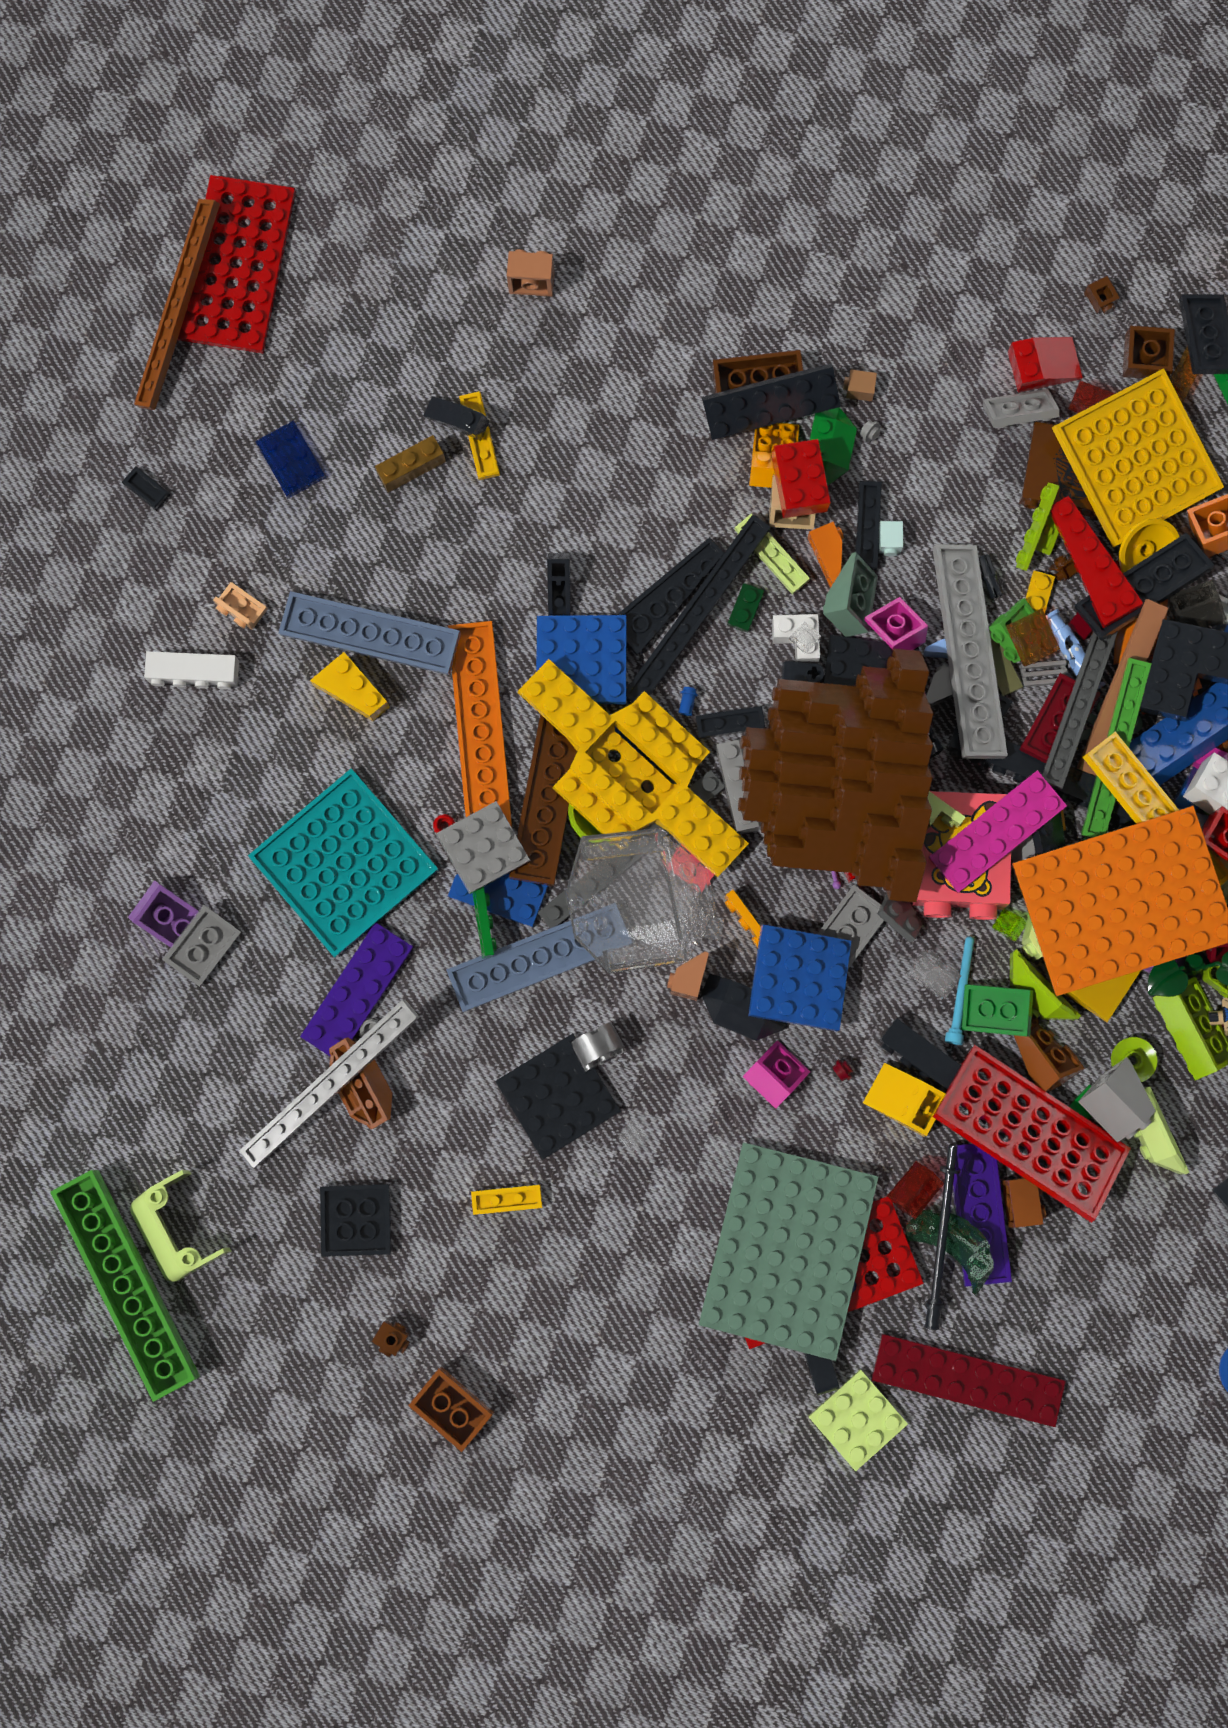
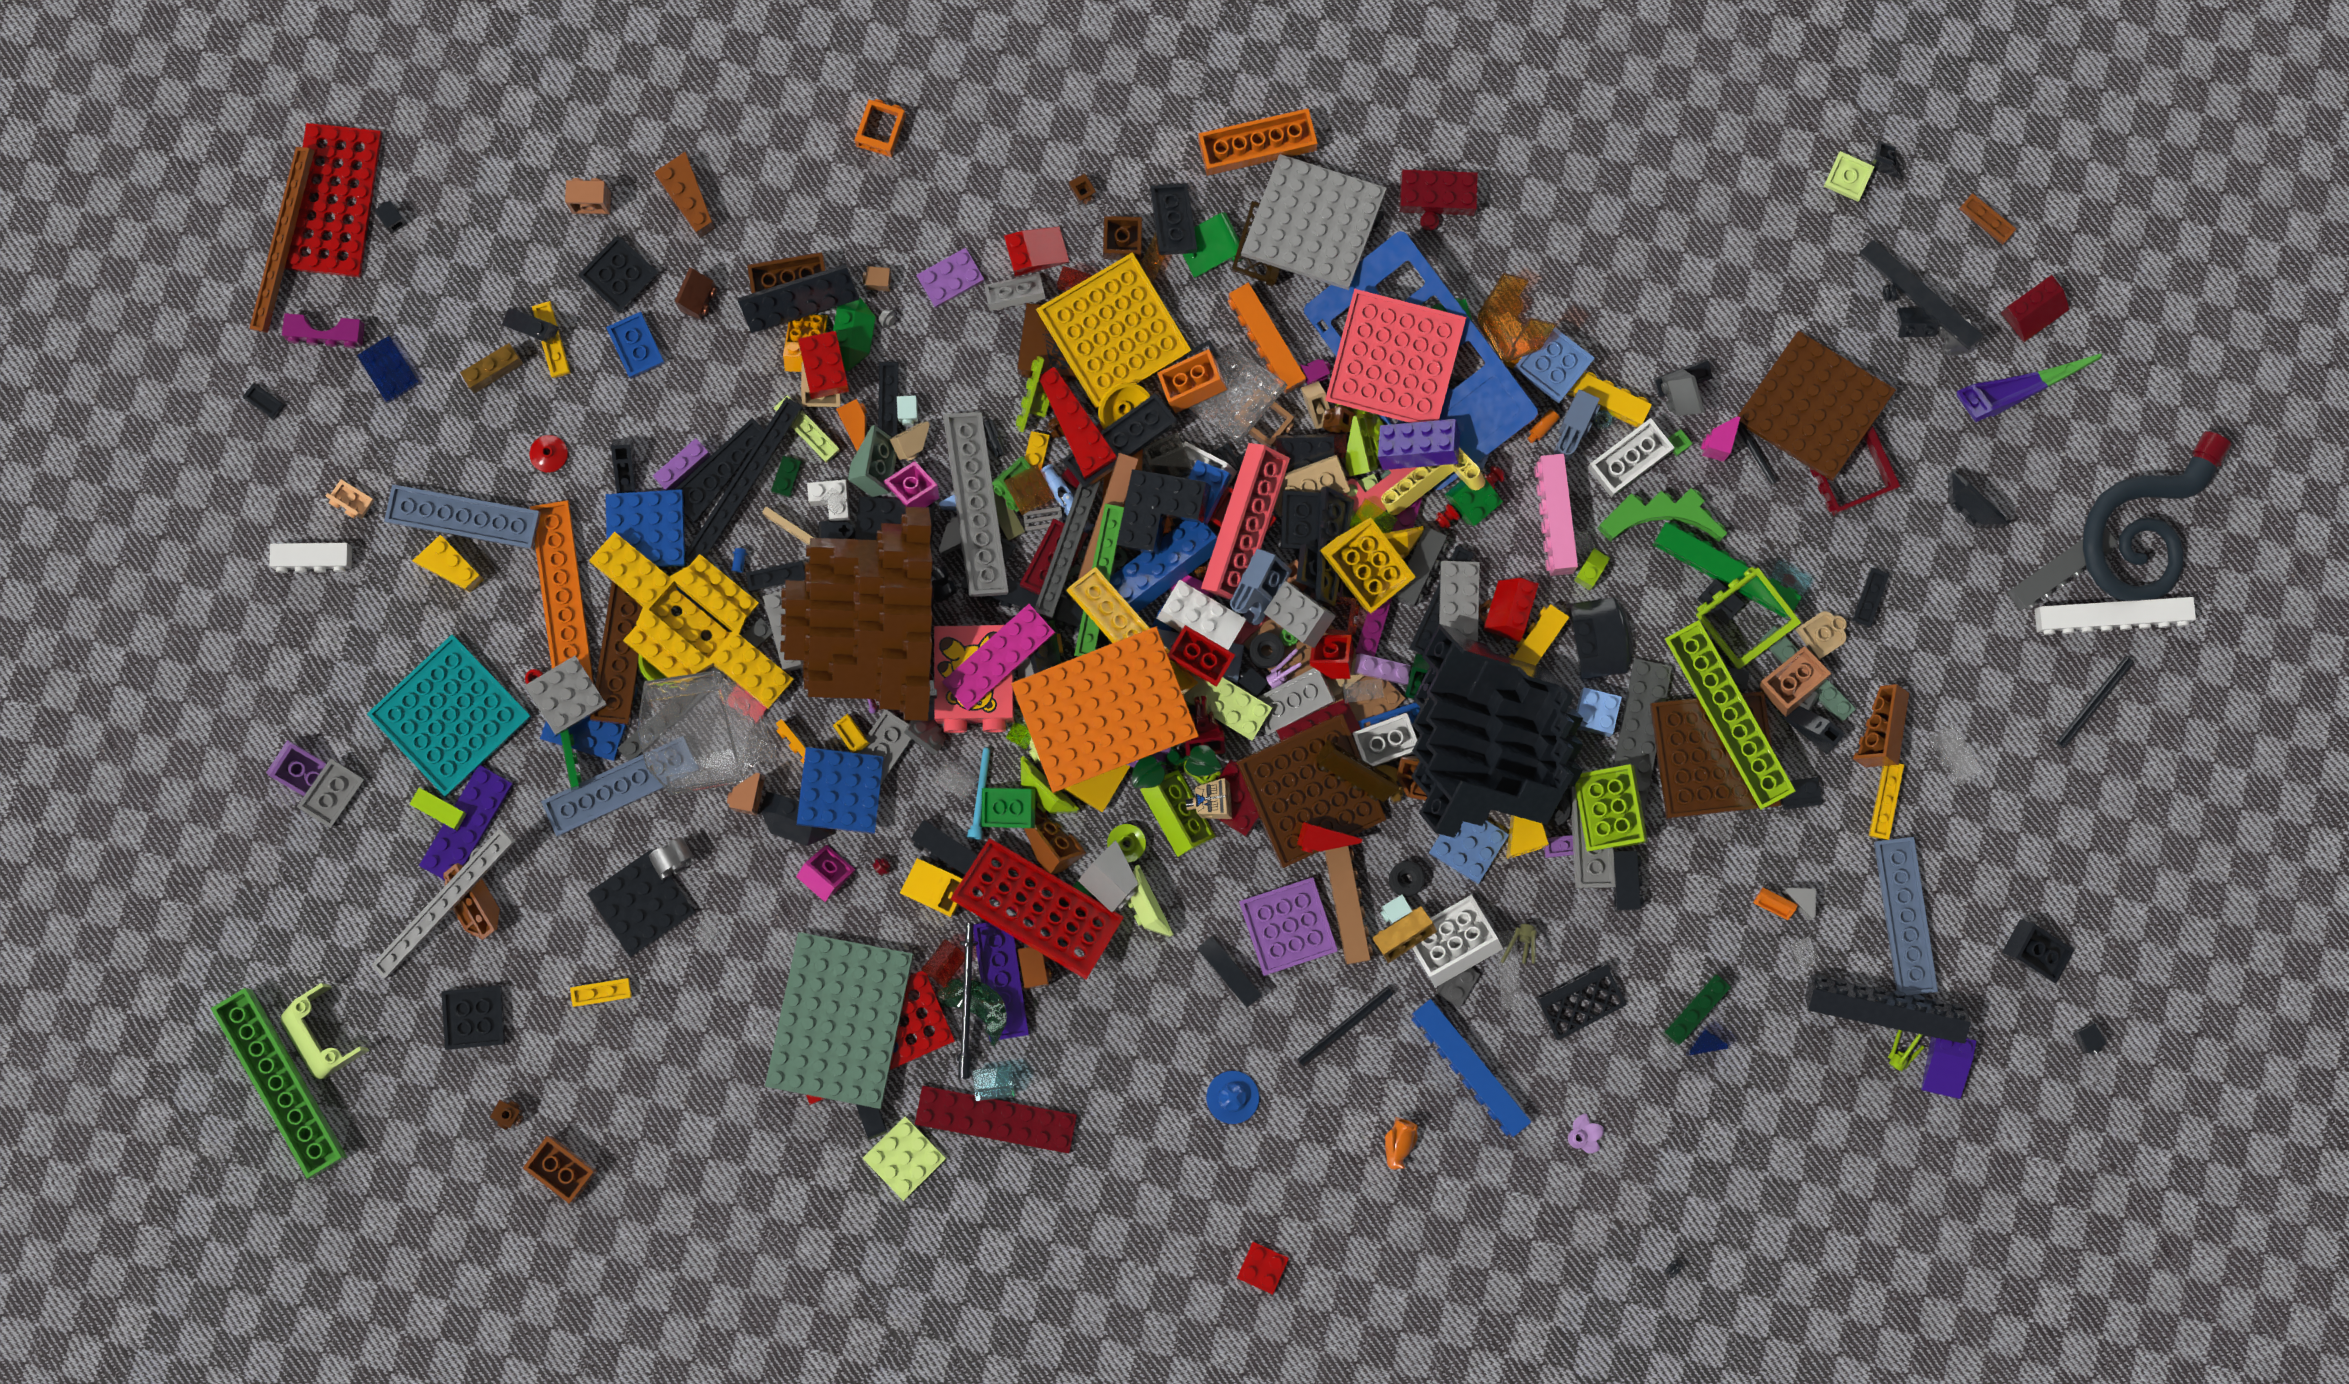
camera: 10 degrees left, 0 degrees up
(245, 414) = (347, 332): none -> magenta arch
(301, 285) = (390, 216): none -> black brick
(325, 971) = (437, 809): none -> lime tile
(470, 576) = (553, 461): none -> red dish
(560, 365) = (618, 274): none -> black plate
(576, 446) = (635, 345): none -> blue plate
(626, 588) = (682, 465): none -> medium lavender brick
(640, 273) = (682, 187): none -> dark orange wedge
(650, 391) = (695, 294): none -> copper slope
(747, 665) = (786, 525): none -> tan tile
(812, 911) = (851, 734): none -> yellow tile
(863, 232) = (875, 145): none -> orange window
(893, 574) = (910, 441): none -> tan slope
(943, 389) = (950, 278): none -> medium lavender plate
(949, 815) = (945, 640): yellowish green slope -> none
(969, 1337) = (993, 1083): none -> clear light blue brick

